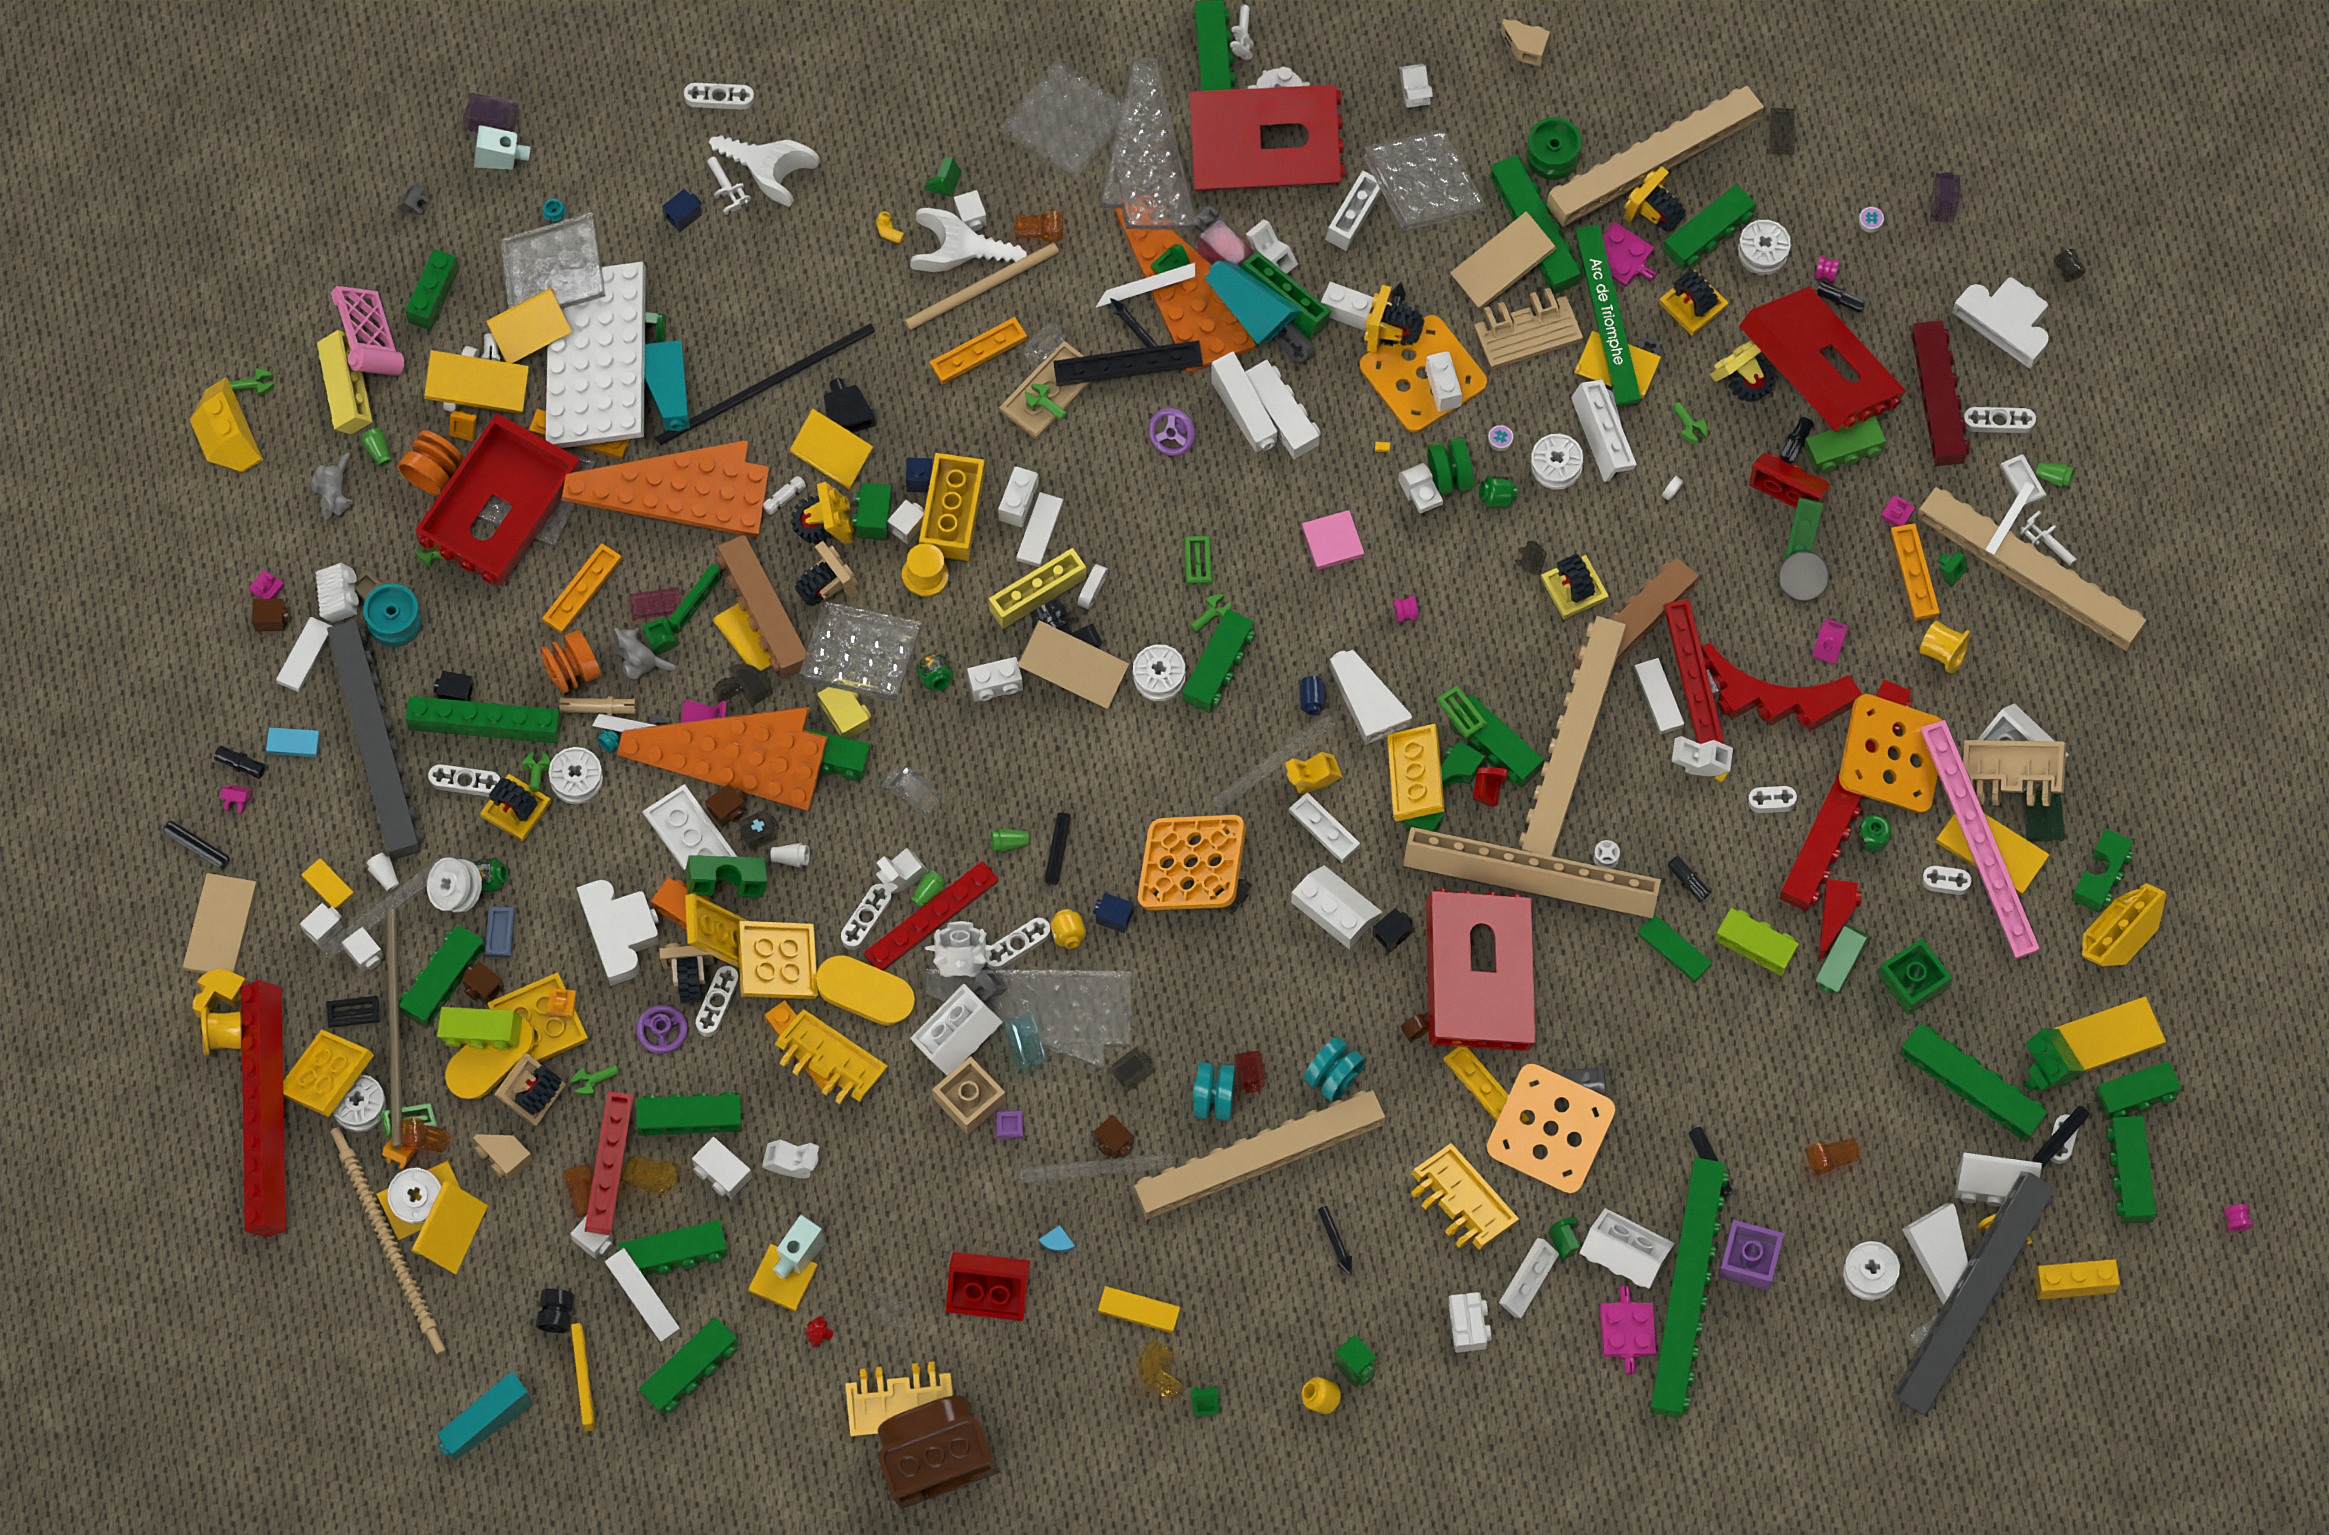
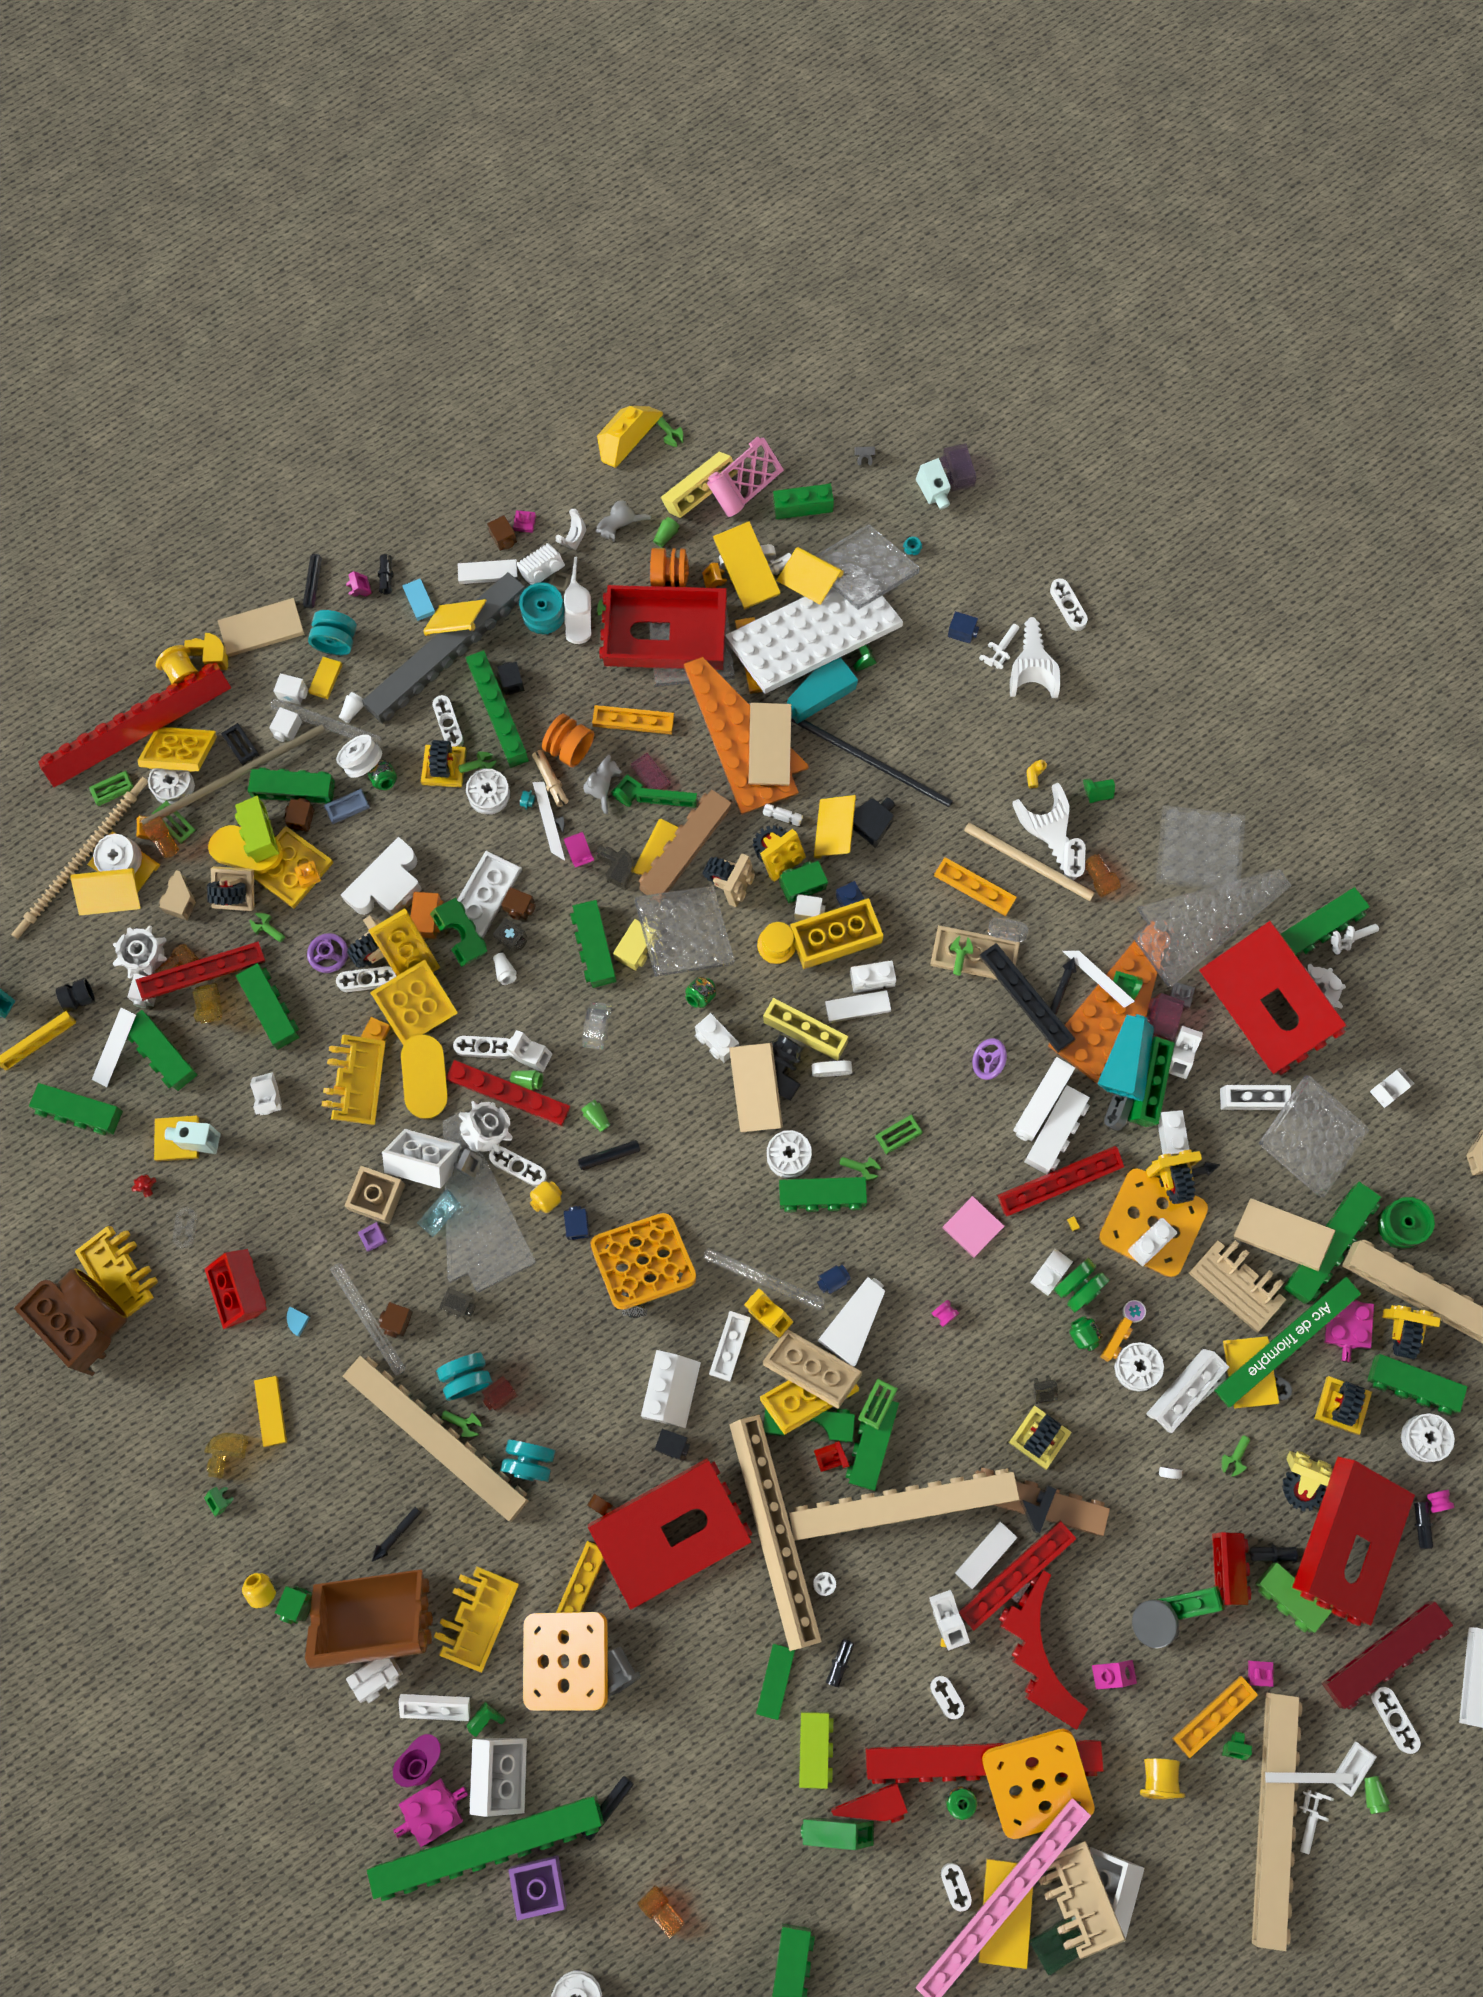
camera: 65 degrees right, 5 degrees up
(285, 845) = (332, 632): none -> teal wheel
(308, 532) = (576, 531): none -> white helmet
(320, 1194) = (109, 794): none -> bright green tile
(347, 708) = (454, 617): none -> yellow piece
(418, 573) = (577, 611): none -> white animal
(542, 1205) = (140, 951): none -> white brick
(703, 461) = (769, 744): none -> tan tile
(721, 1168) = (237, 1050): white brick -> none
(753, 752) = (562, 893): orange wing -> none
(970, 210) = (1082, 821): white brick -> none
(1006, 240) = (1079, 858): none -> white beam
(1259, 1123) = (459, 1421): none -> bright green bar
(1334, 434) = (1060, 1181): none -> red plate
(1392, 757) = (812, 1368): none -> tan tile
(1411, 1292) = (368, 1619): none -> dark orange cylinder
(1515, 459) = (1122, 1332): none -> light orange plate
(1572, 1313) = (417, 1762): none -> magenta piece
(1646, 620) = (1037, 1514): none -> black slope
(1914, 976) = (851, 1905): green brick -> none

